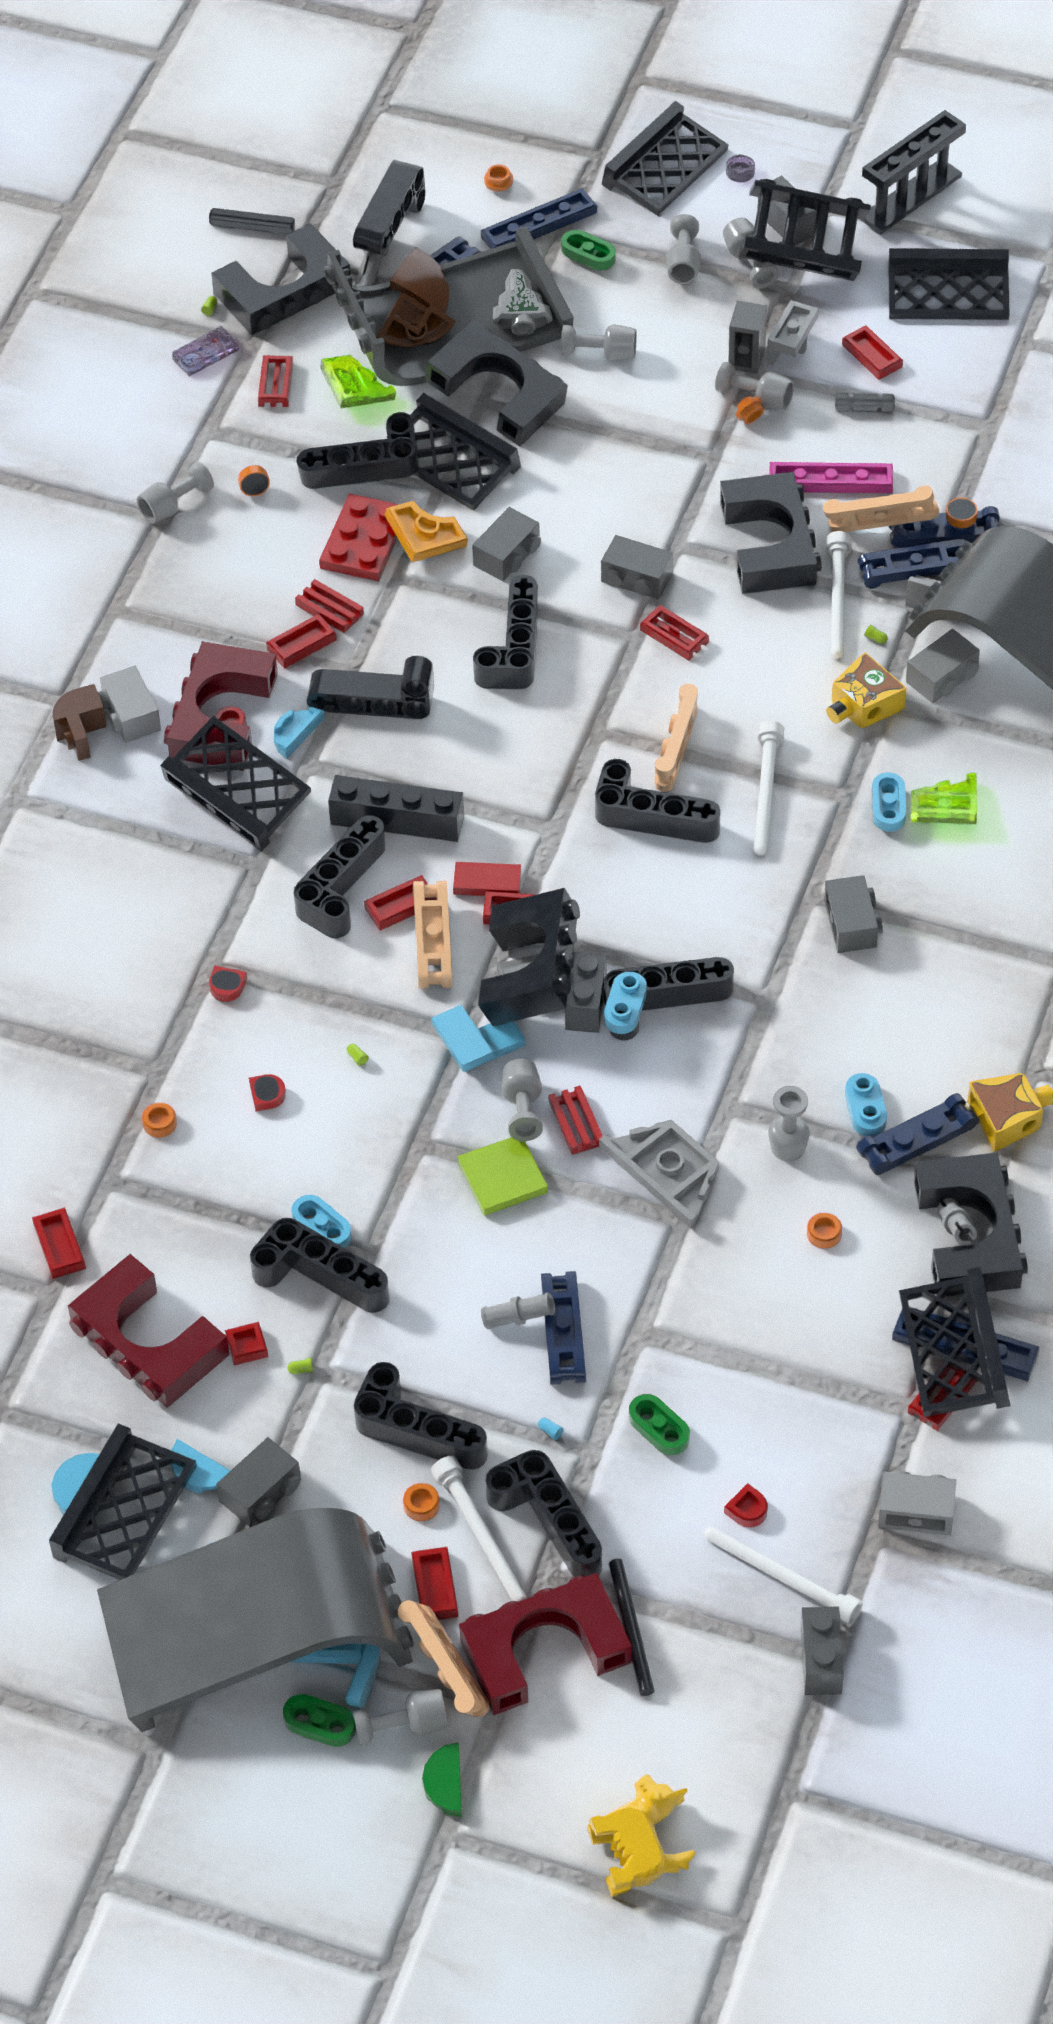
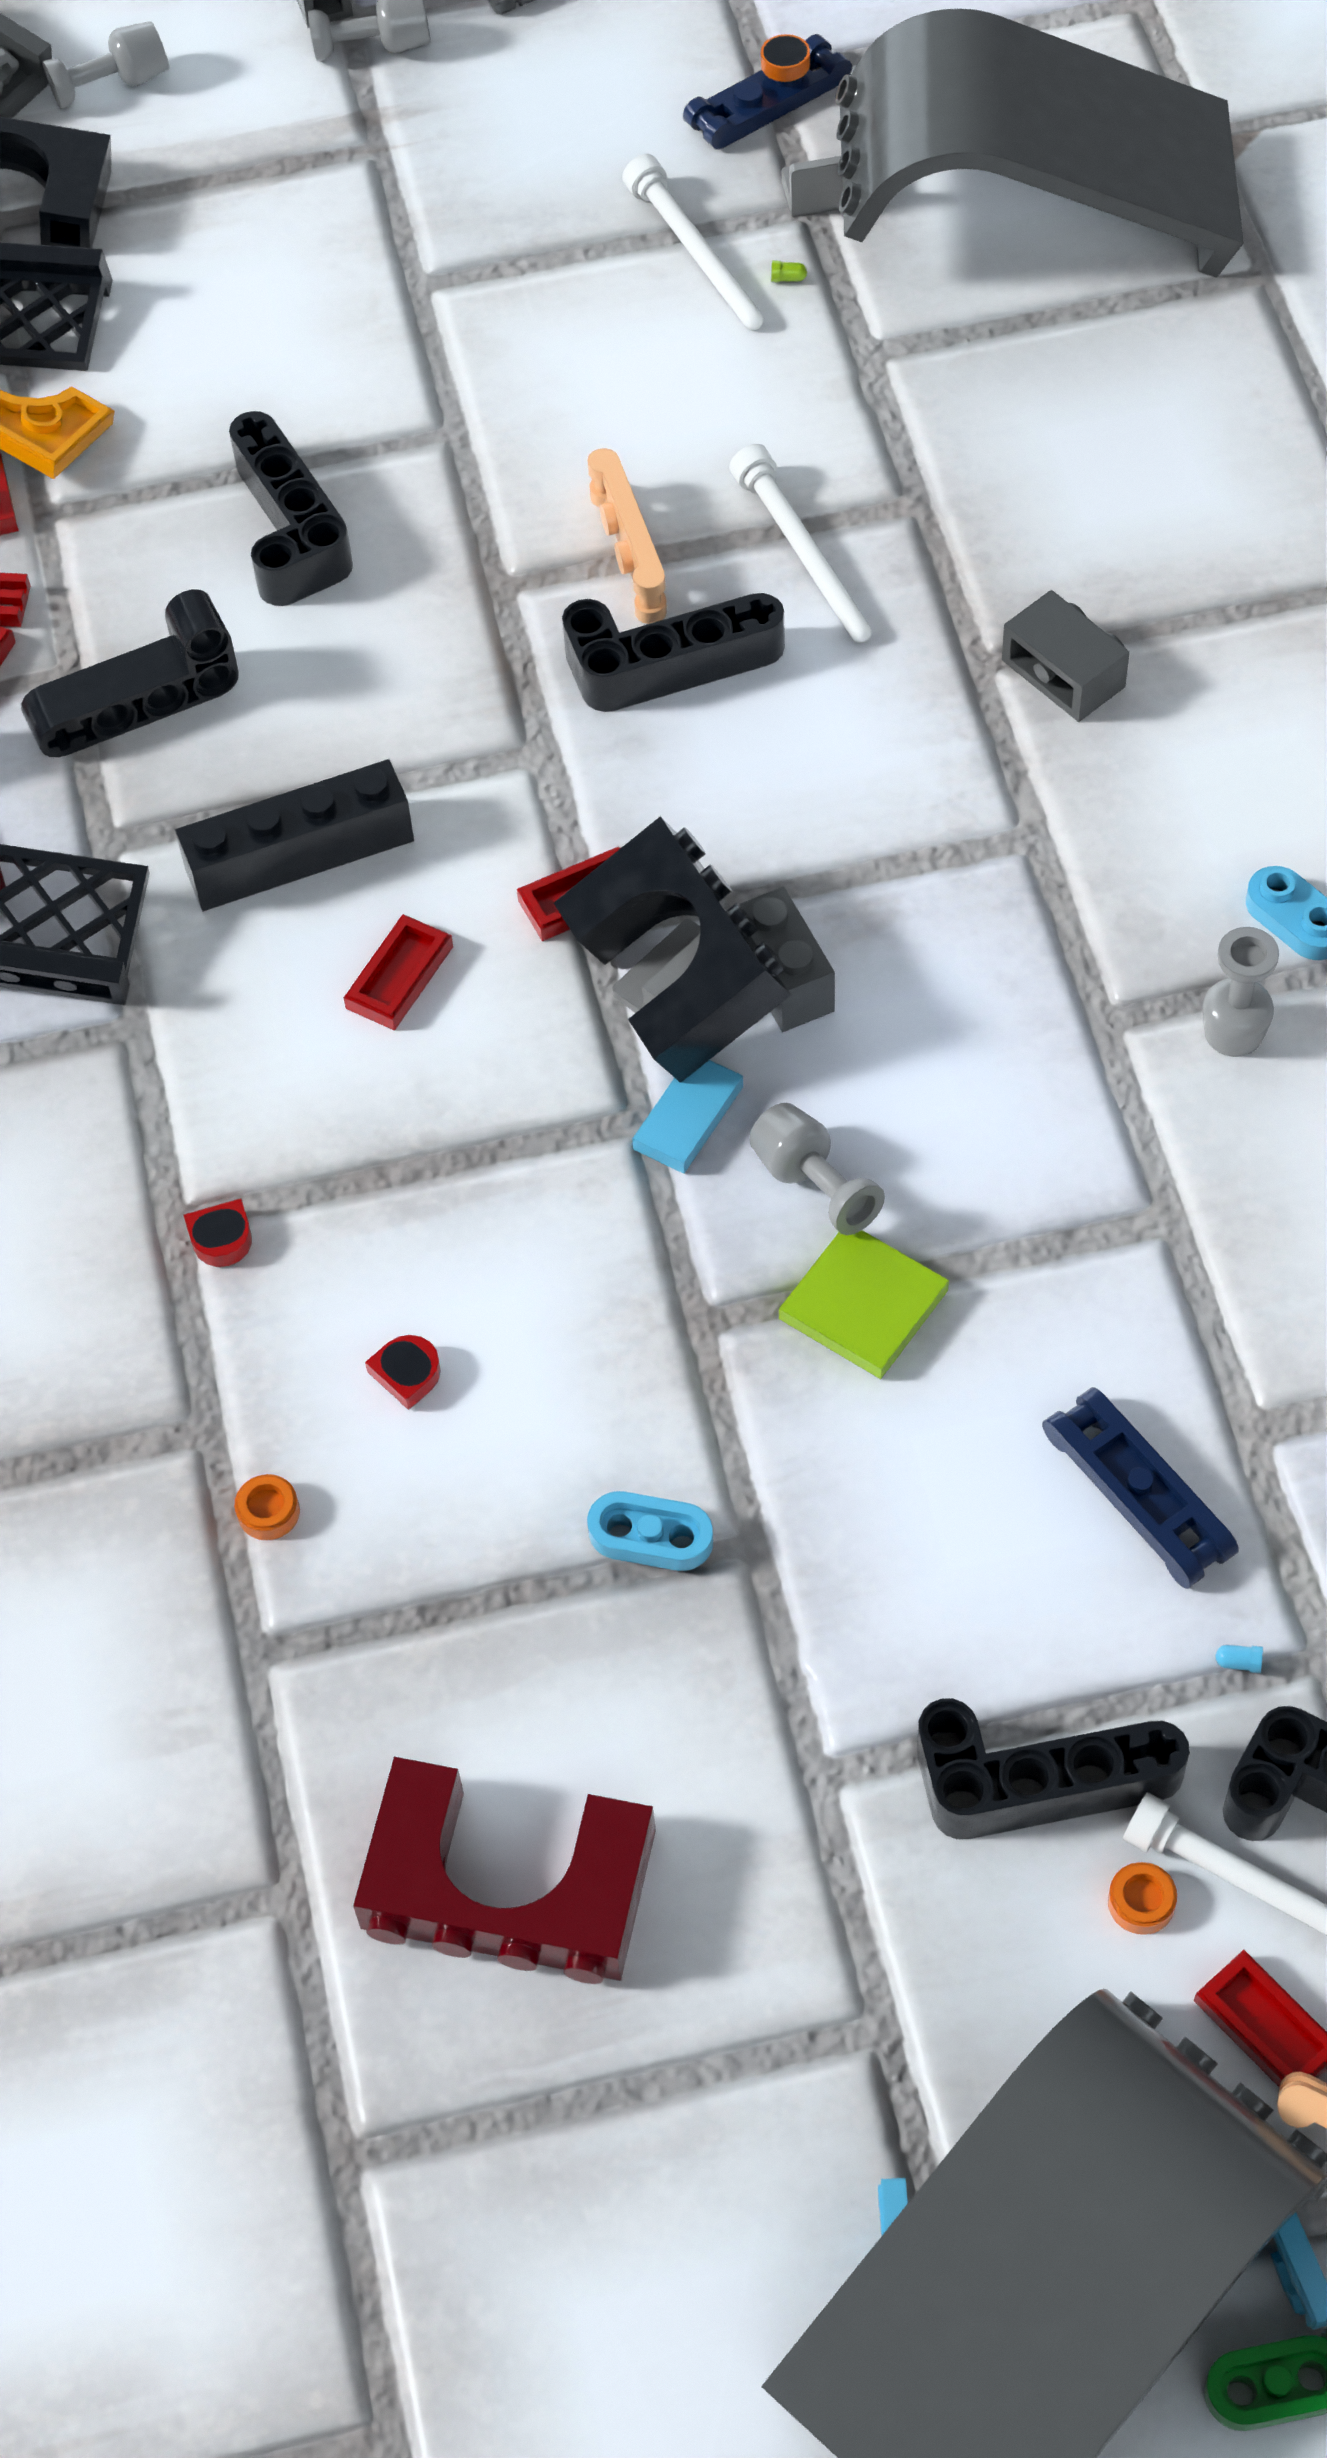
camera: 30 degrees left, 5 degrees up
(58, 1243) = (246, 1803): red tile -> none
(70, 1477) = (564, 2206): medium azure tile -> none
(93, 1495) = (624, 2211): black fence -> none
(207, 1470) = (753, 2062): medium azure tile -> none
(246, 1343) = (676, 1793): red tile -> none
(259, 1482) = (875, 2021): dark grey brick -> none
(294, 728) = (46, 799): medium azure tile -> none
(300, 1366) = (787, 1783): lime piece -> none
(321, 891) = (277, 961): black beam -> none
(357, 1054) = (503, 1234): lime piece -> none
(362, 1286) = (710, 1608): black beam -> none
(432, 934) = (489, 991): light nougat plate -> none
(462, 1038) = (653, 1123): medium azure tile -> none
(477, 878) = (499, 870): tile -> none
(506, 544) = (177, 389): brick -> none
(518, 1310) = (1061, 1499): light grey pin -> none
(567, 1098) = (914, 1150): red tile -> none
(625, 1000) = (863, 937): medium azure plate -> none
(637, 567) = (389, 333): brick -> none
(667, 1165) = (1097, 1153): light grey wing -> none
(670, 634) = (506, 402): red tile -> none
(679, 984) = (940, 853): black beam -> none
(749, 409) = (385, 60): orange plate -> none
(780, 501) = (524, 157): black arch -> none
(839, 477) = (561, 100): dark pink tile -> none
(866, 693) = (843, 350): yellow torso -> none
(881, 511) = (678, 102): light nougat plate -> none
(888, 808) = (997, 487): medium azure plate -> none
(907, 562) = (762, 154): dark blue plate -> none
(942, 666) = (917, 266): light grey brick -> none
(946, 802) = (1067, 442): clear neon green wing -> none

